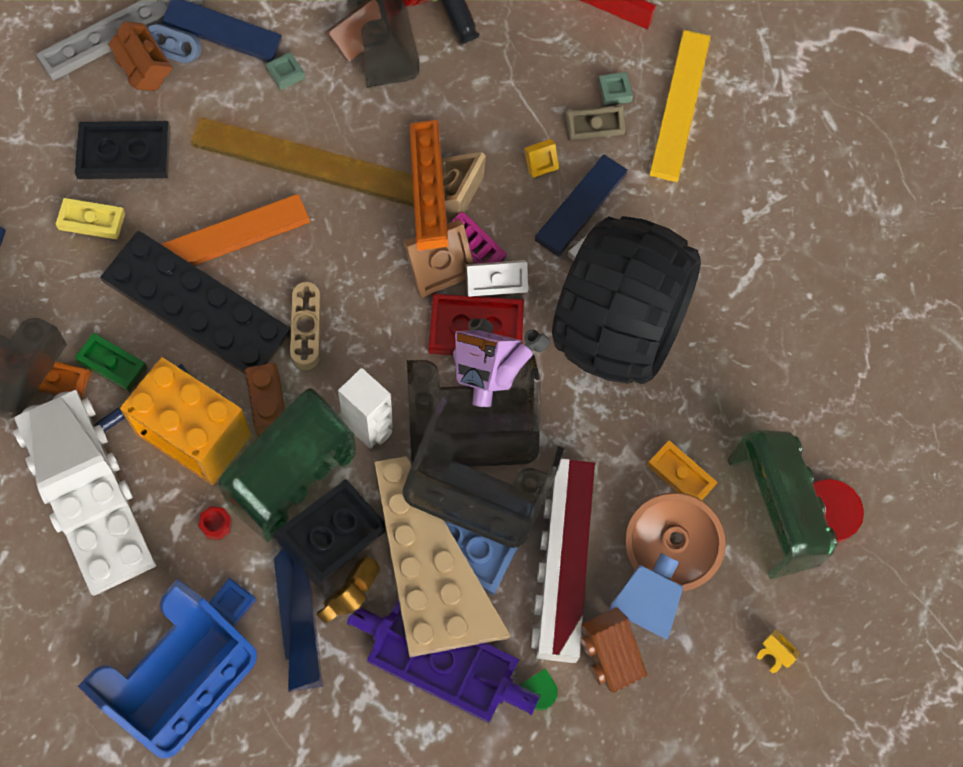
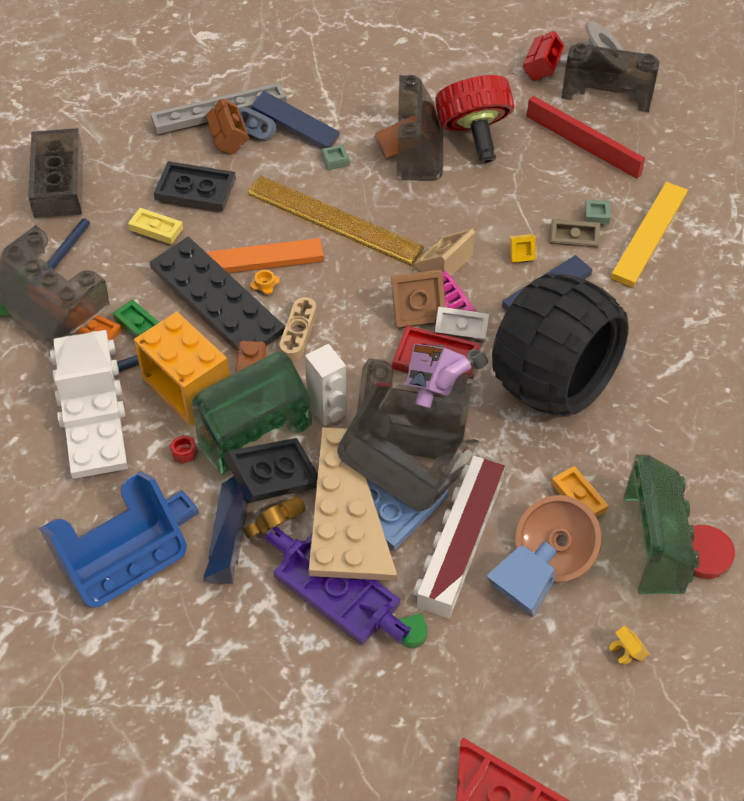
camera: 20 degrees right, 15 degrees down
(244, 262) = (264, 281): none -> light orange plate
(428, 186) = (423, 245): orange tile -> none
(613, 650) = (482, 607): dark orange brick -> none

